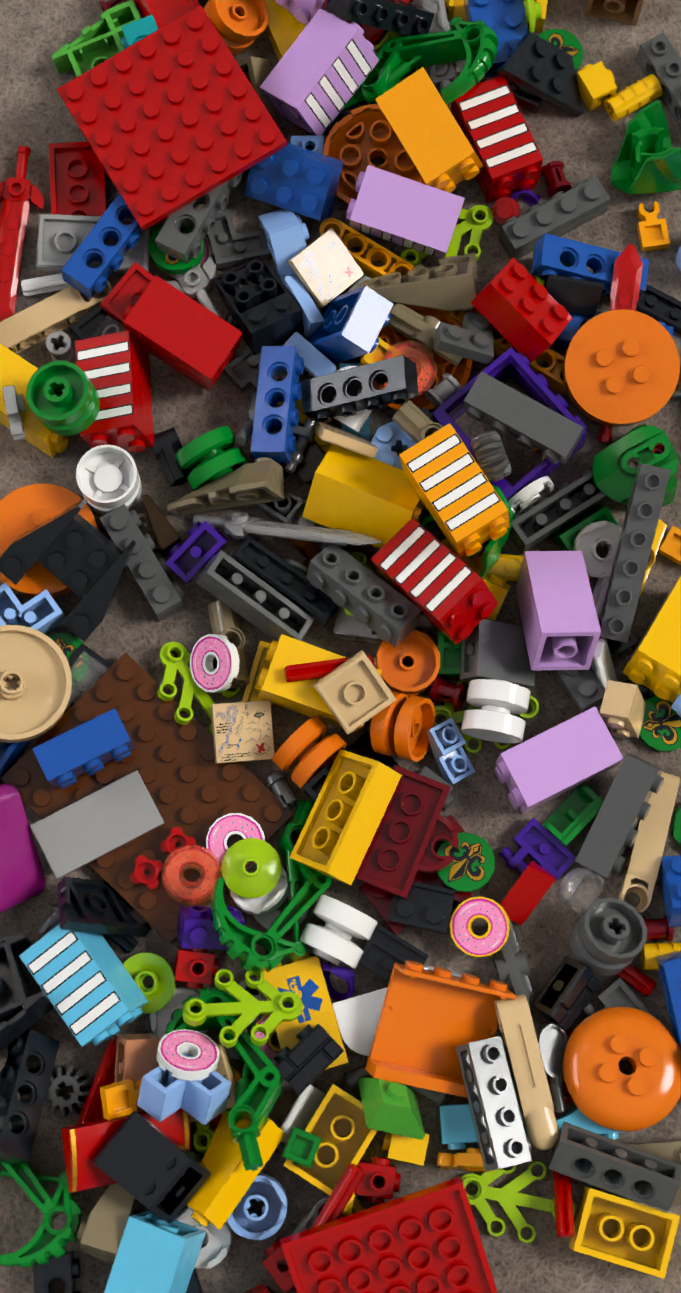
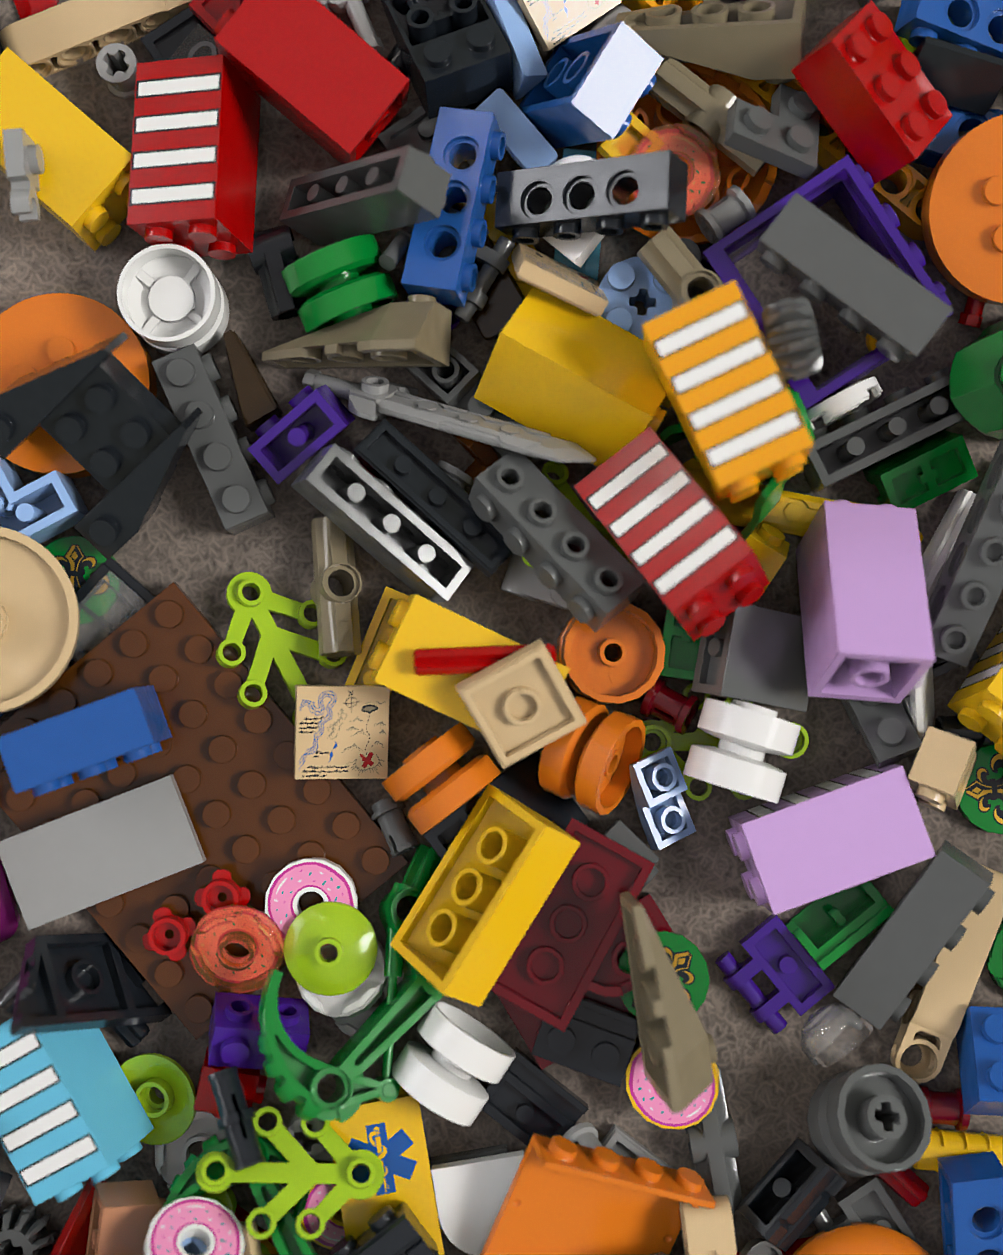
camera: 10 degrees right, 10 degrees up
(63, 398) = (100, 159): green wheel -> none
(202, 663) = (290, 625): tile -> none
(204, 975) = (236, 1118): none -> black pin
(222, 403) = (366, 196): none -> dark grey brick
(342, 972) = (449, 1128): dark purple piece -> none
(472, 885) = (671, 1036): none -> dark tan wedge
(527, 892) = (752, 1030): red slope -> none
(587, 541) = (925, 487): white tile -> none

